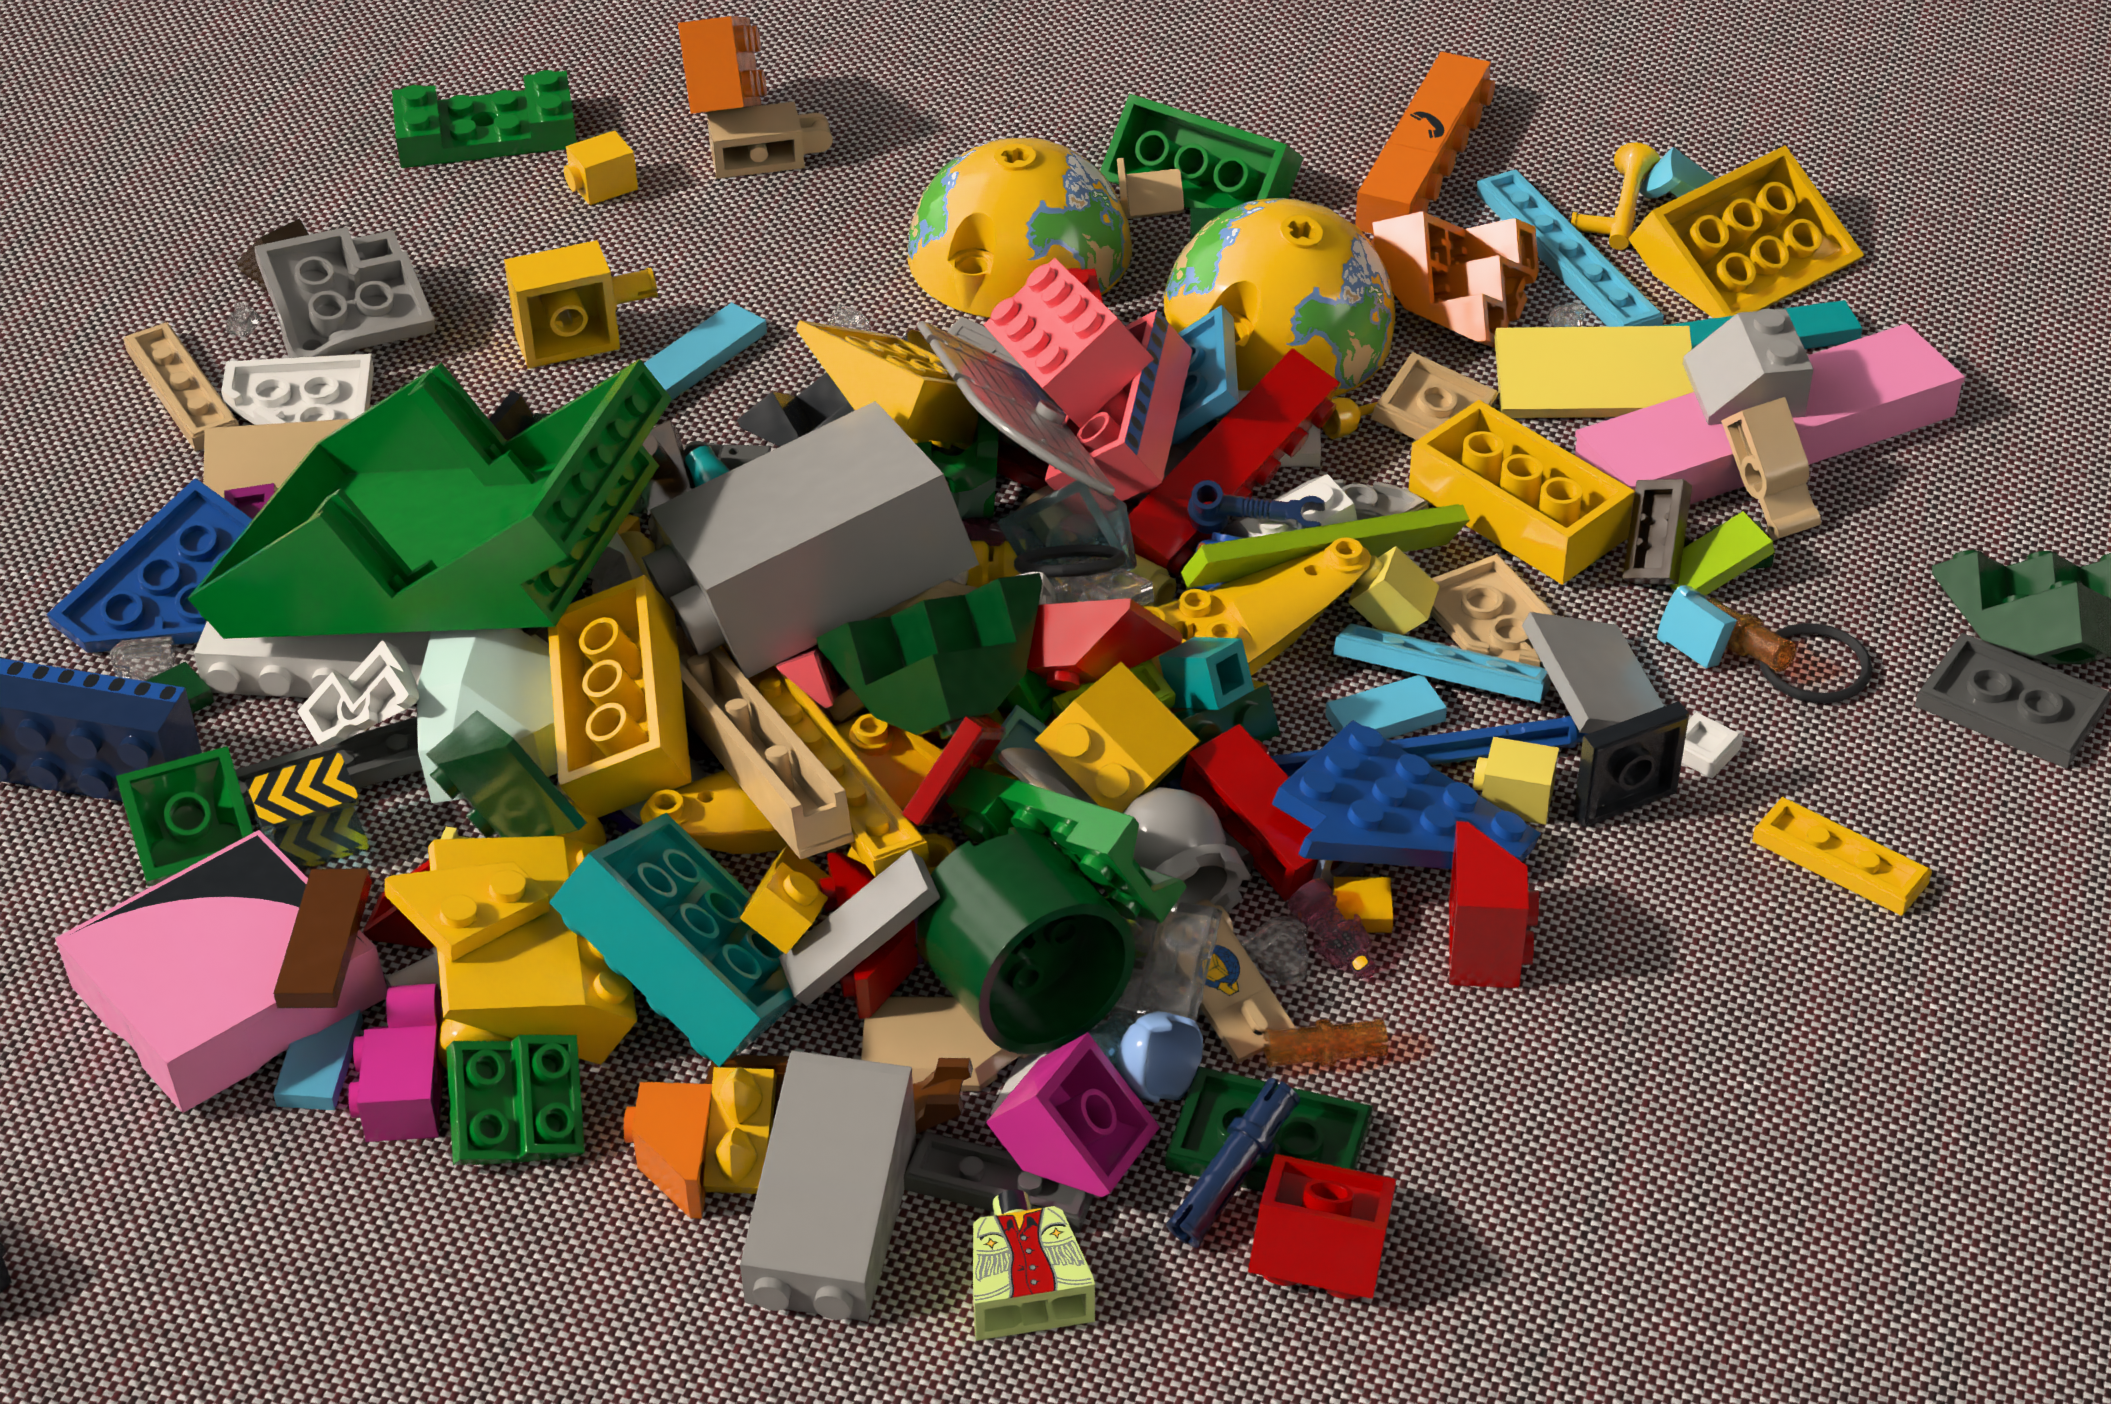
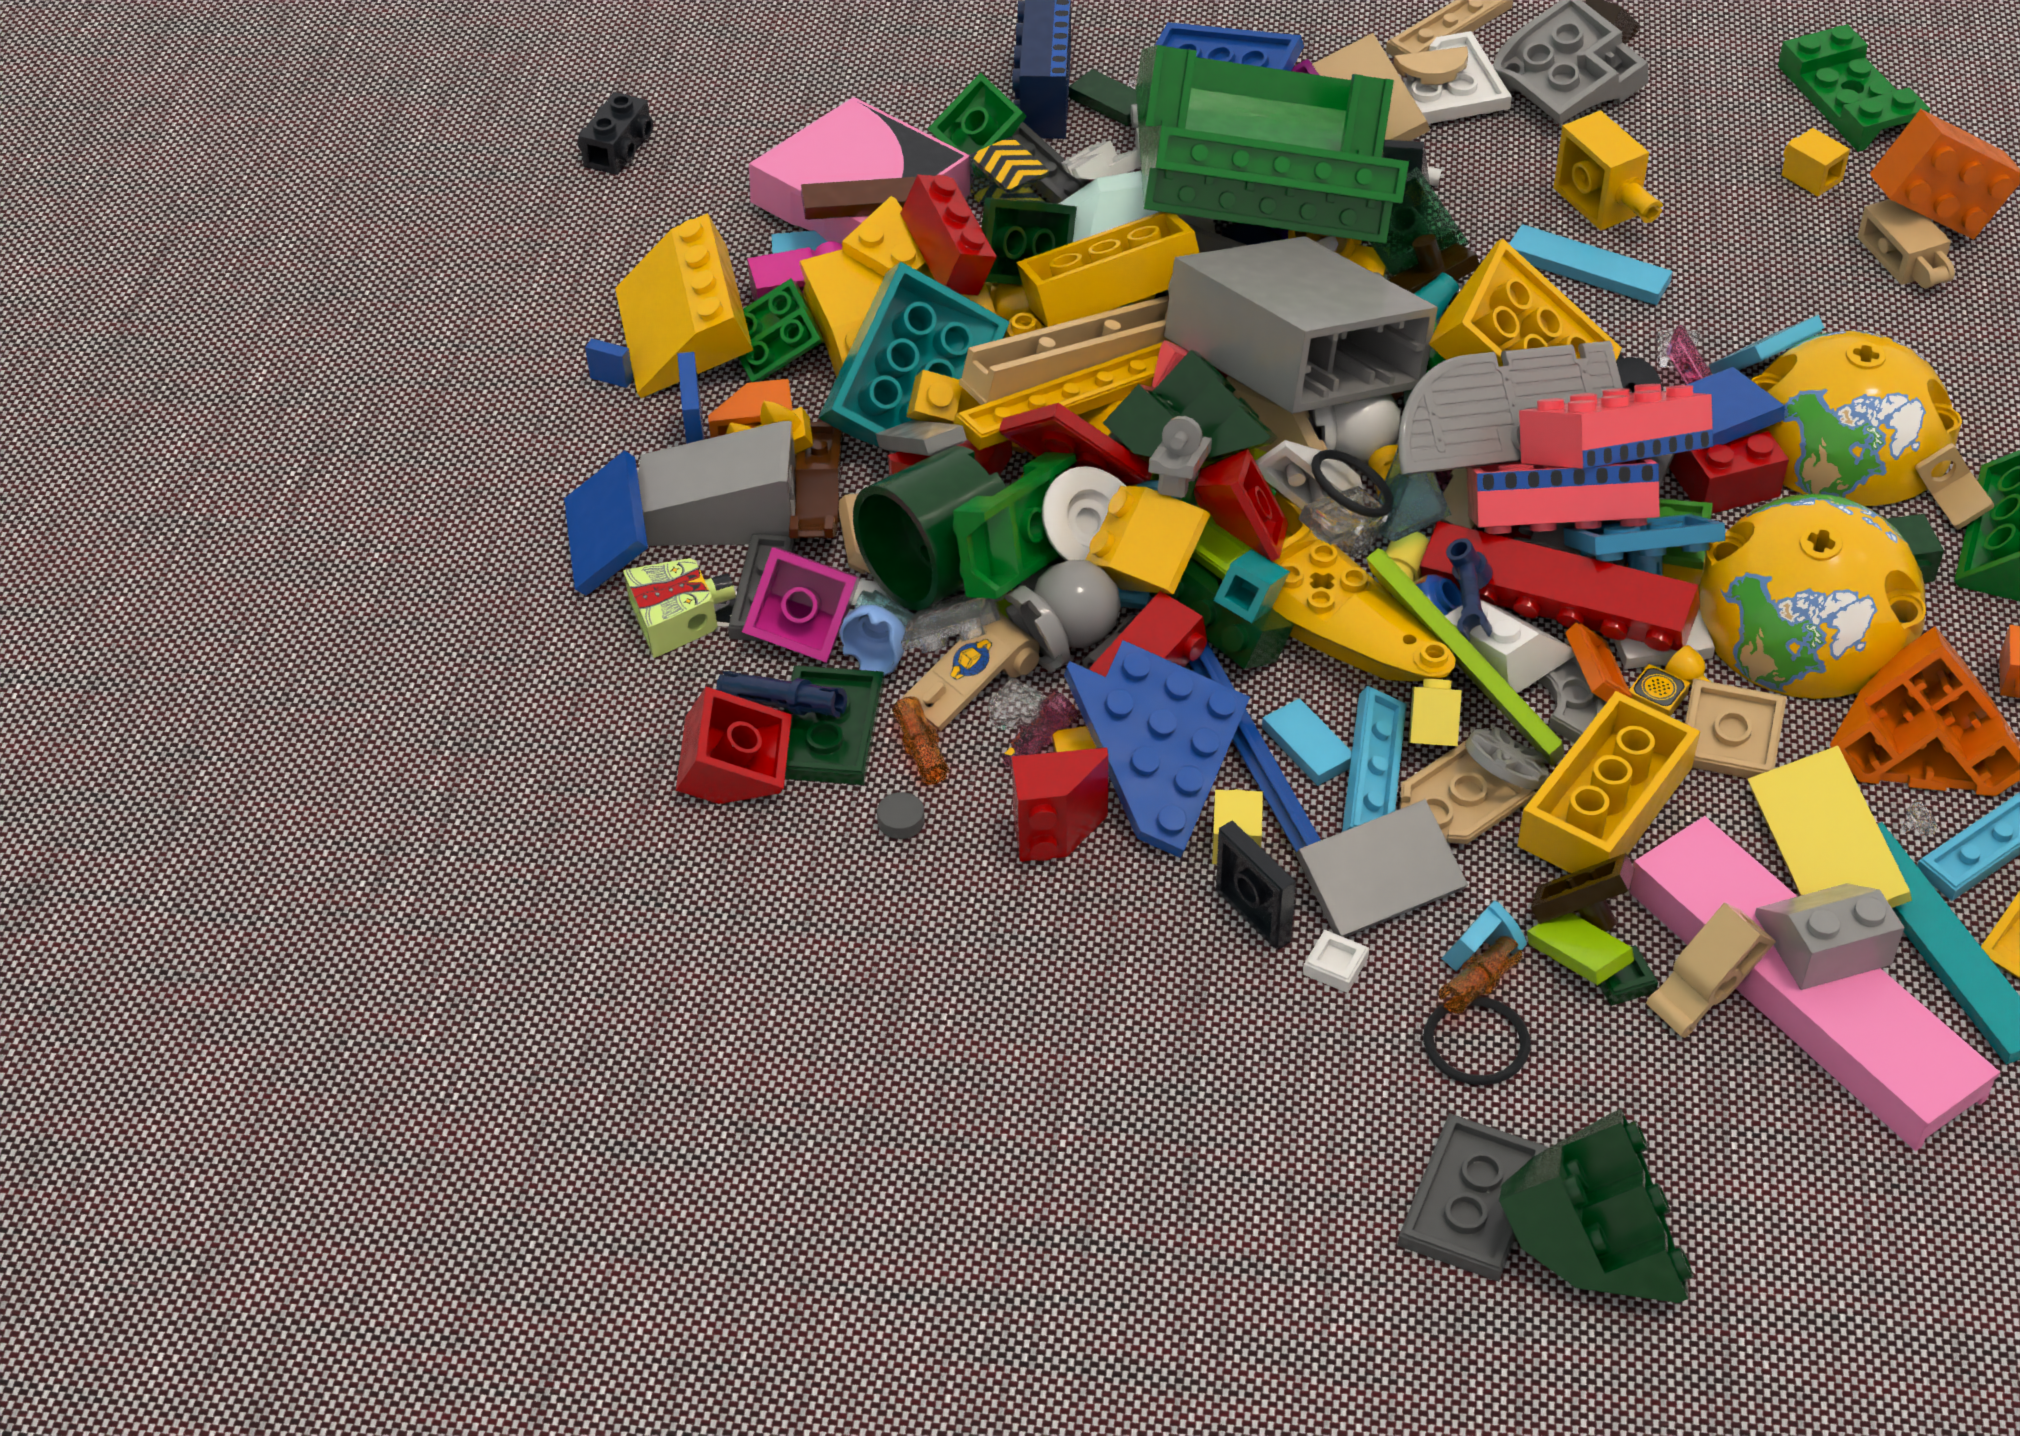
camera: 80 degrees right, 5 degrees up
(288, 394) = (1433, 66): none -> tan tile
(428, 1196) = (681, 303): none -> yellow slope
(491, 1306) = (609, 363): none -> blue tile
(510, 820) = (948, 234): none -> red brick
(671, 1195) = (690, 397): none -> blue tile
(855, 1327) = (605, 523): none -> blue tile
(902, 310) = (1686, 357): none -> clear pink slope
(903, 254) = (1769, 345): none -> medium azure tile
(994, 279) = (1738, 405): none -> blue tile
(1052, 647) = (1179, 455): none -> light grey hips
(1337, 468) = (1596, 662): none -> orange tile
(1366, 446) = (1659, 689): none -> tile
(1440, 1081) = (900, 815): none -> dark grey tile
(1458, 557) = (1507, 758): none -> light grey wheel
(1842, 856) = (1221, 1066): yellow tile -> none

